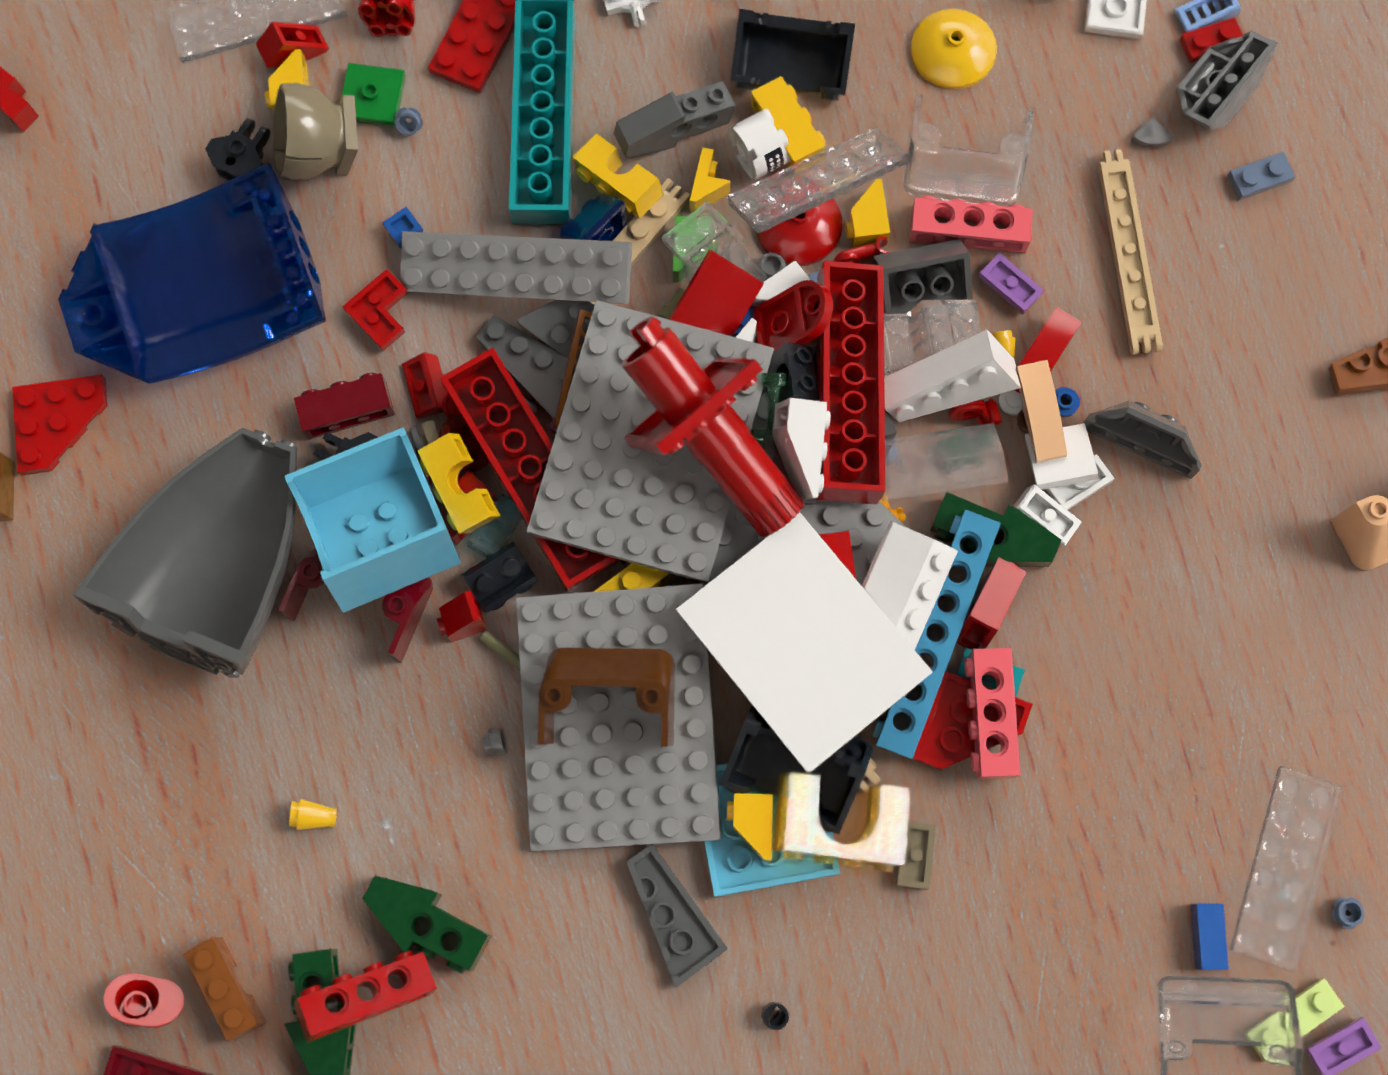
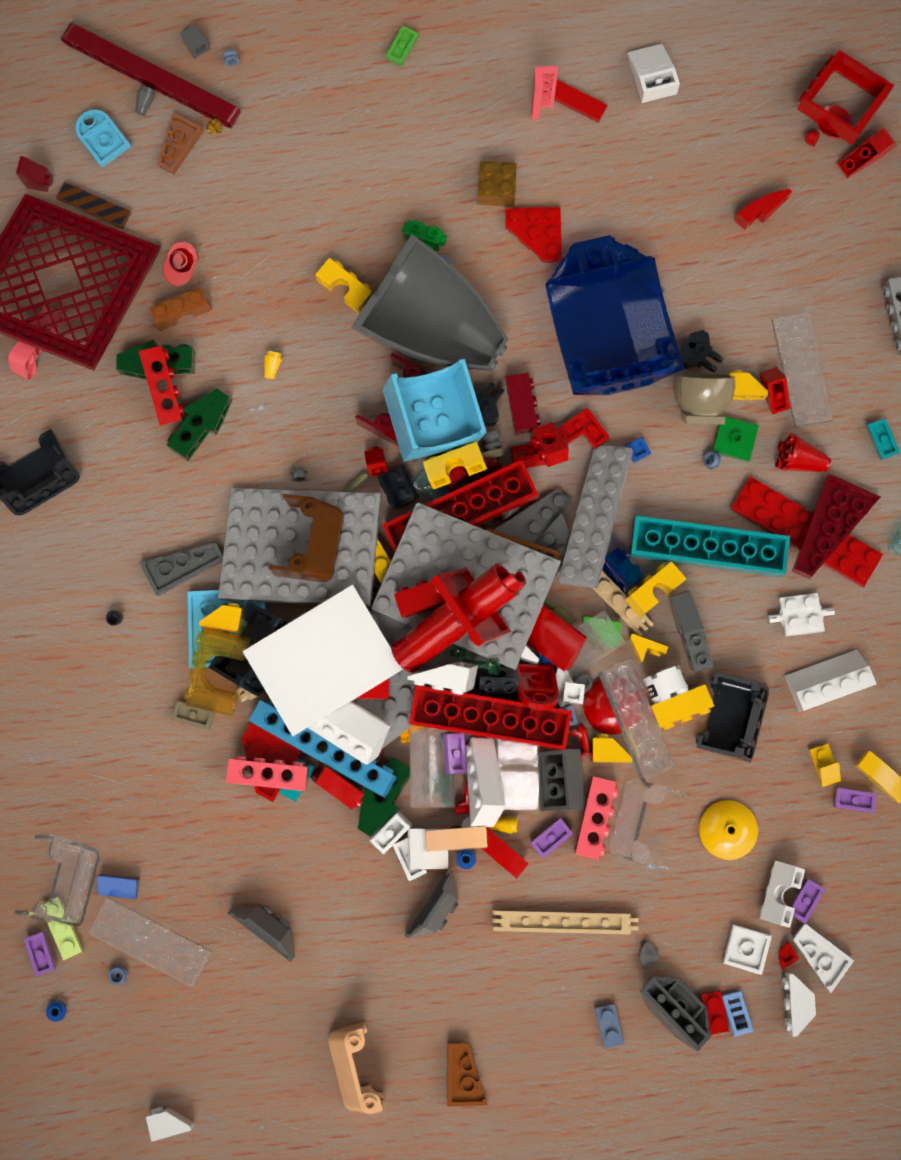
camera: 100 degrees right, 5 degrees up
(62, 606) = (431, 236): none -> green brick
(147, 731) = (333, 274): none -> yellow arch
(408, 351) = (549, 444): none -> red brick
(680, 494) = (417, 599): none -> red brick
(793, 267) = (573, 693): none -> white plate
(915, 428) = (454, 753): none -> medium lavender plate
(1225, 686) = (267, 927): none -> dark grey wedge

